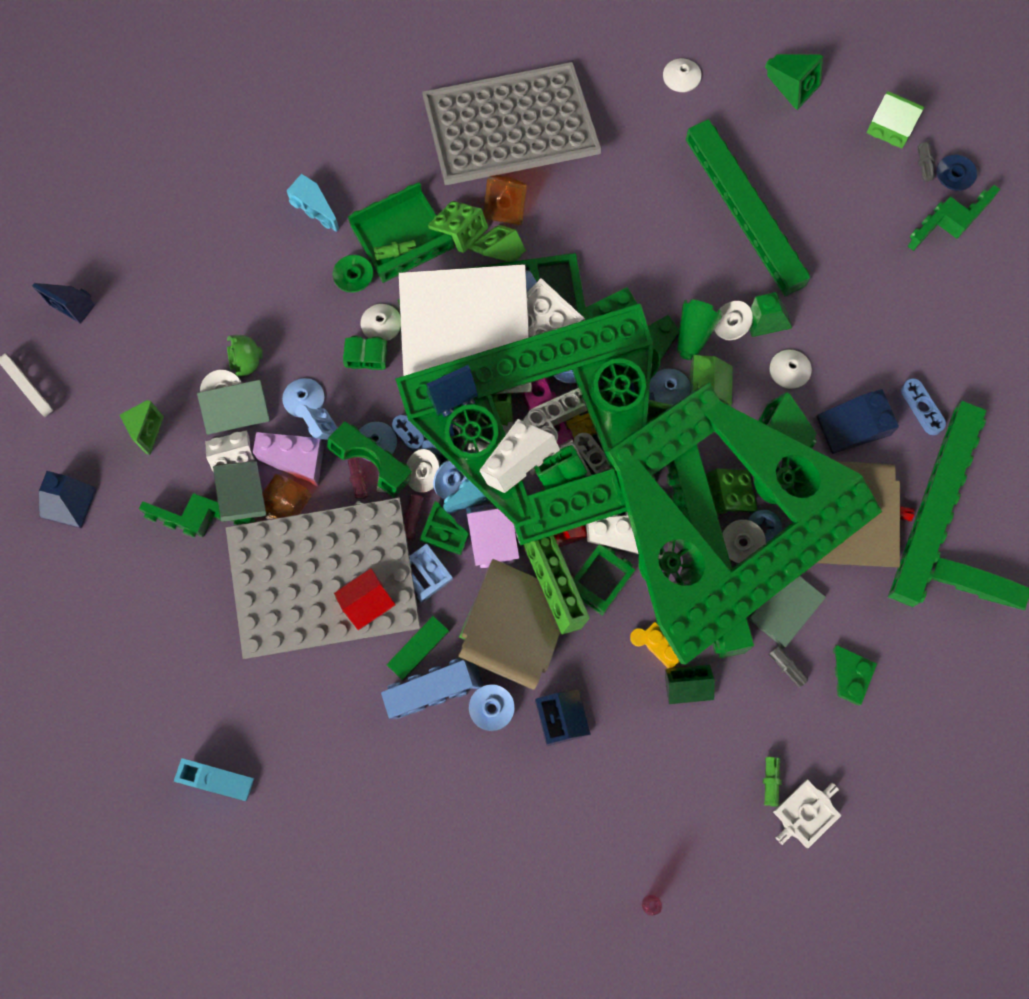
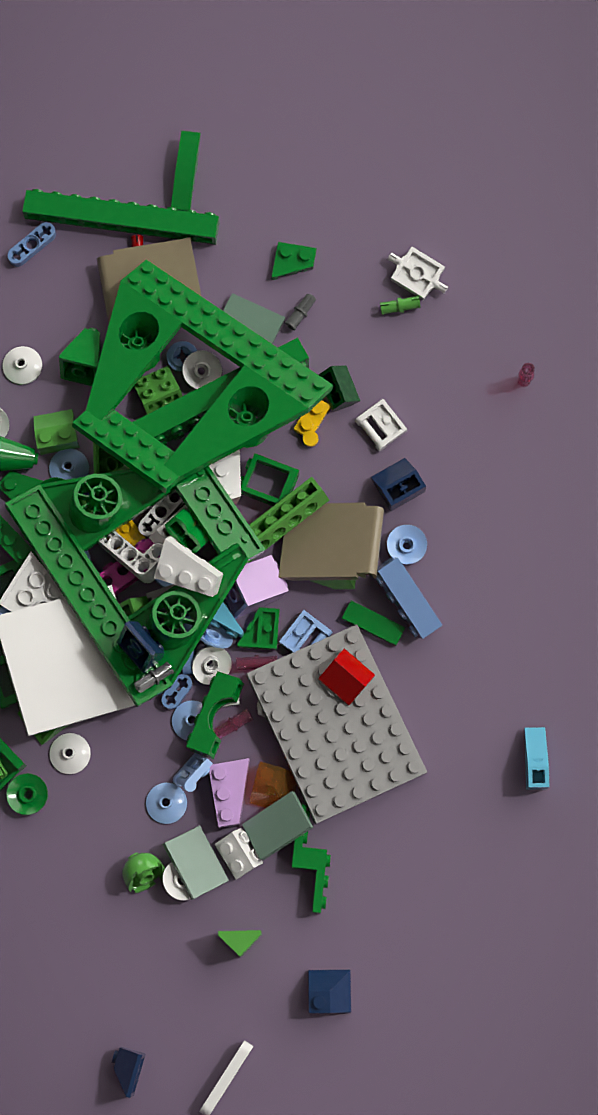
camera: 105 degrees left, 5 degrees up
(365, 353) = (108, 755): green brick -> none
(418, 399) = (153, 677): none -> dark grey axle
(638, 725) = (386, 421): none -> white plate
(858, 421) = (62, 296): dark blue slope -> none

